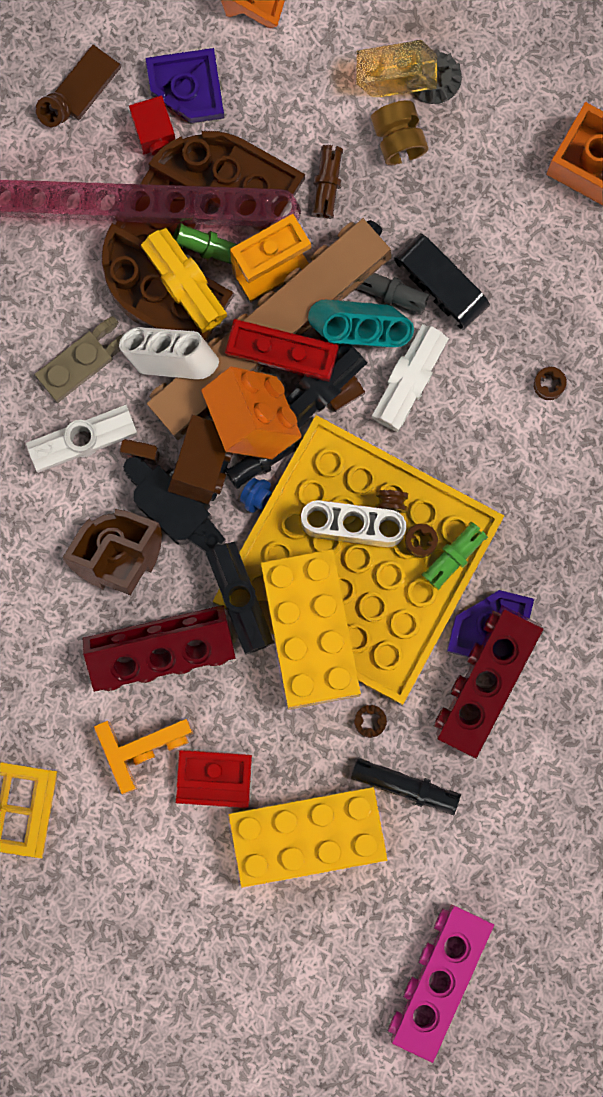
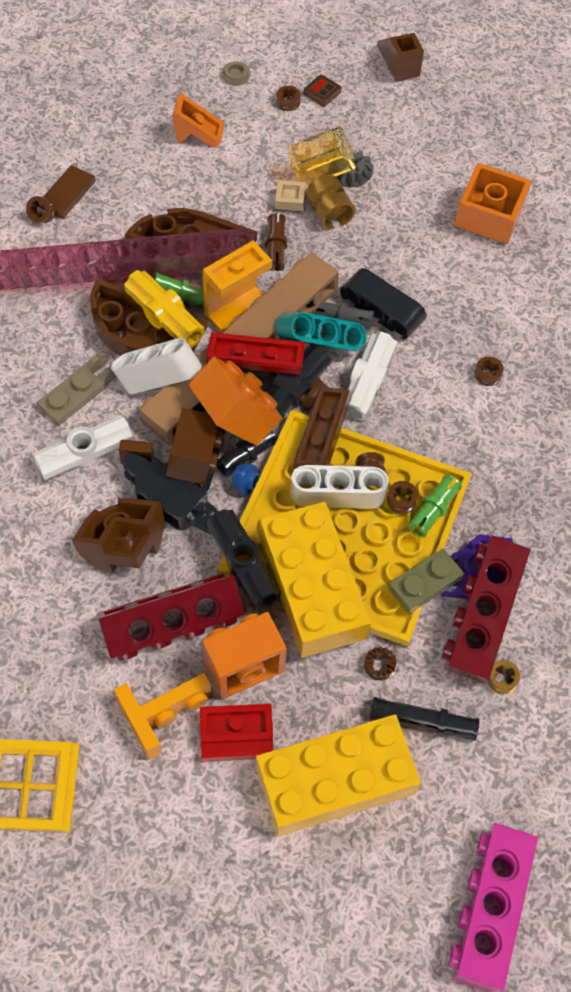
camera: 10 degrees left, 20 degrees down
(152, 124) = (123, 210): red brick -> none
(187, 84) = (151, 185): dark purple plate -> none
(227, 704) = (244, 654): none -> orange brick
(346, 449) = (323, 427): none -> reddish brown tile
(353, 114) = (290, 195): none -> tan plate
(431, 640) = (425, 581): none -> olive plate
(492, 761) = (502, 687): none -> pearl gold bush

